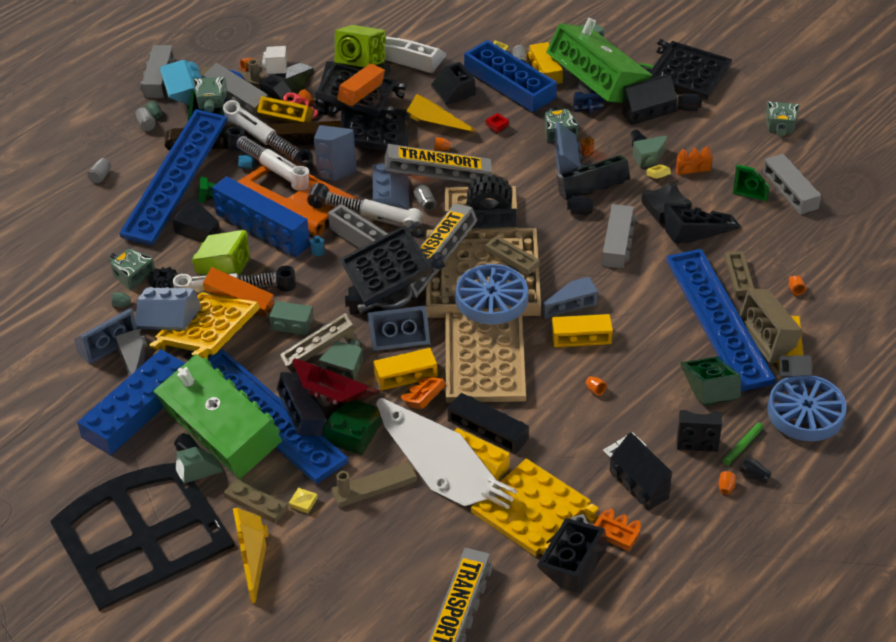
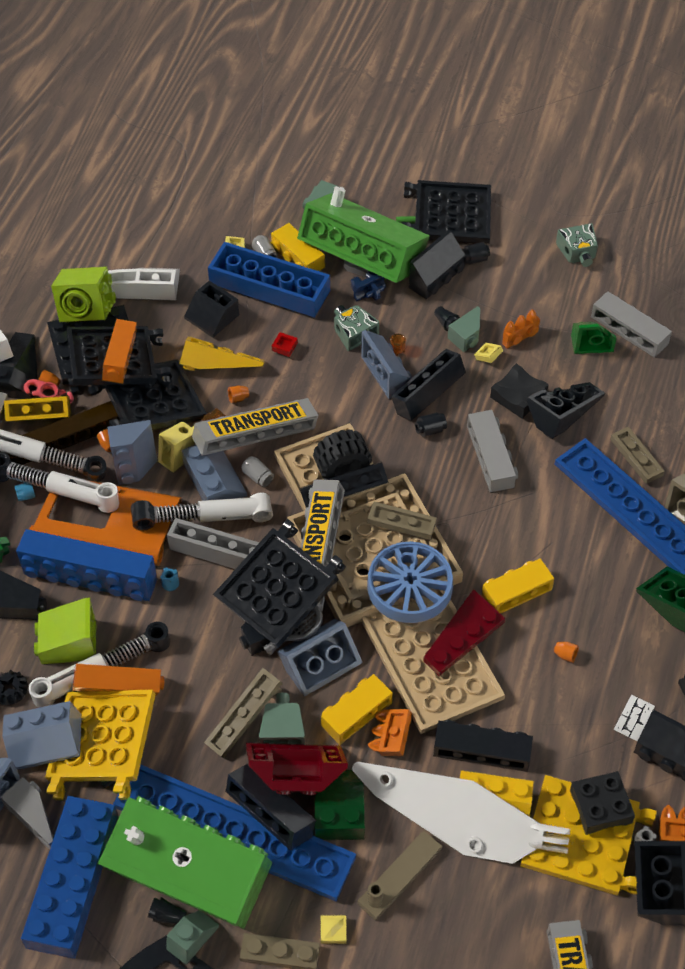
camera: 25 degrees left, 10 degrees up
(291, 318) = (192, 689): sand green brick -> none
(366, 158) = (172, 442): none -> light yellow torso
(521, 343) = (466, 629): none -> dark red wing
(556, 485) = (602, 802): none -> black brick
(572, 297) = (488, 544): sand blue slope -> none

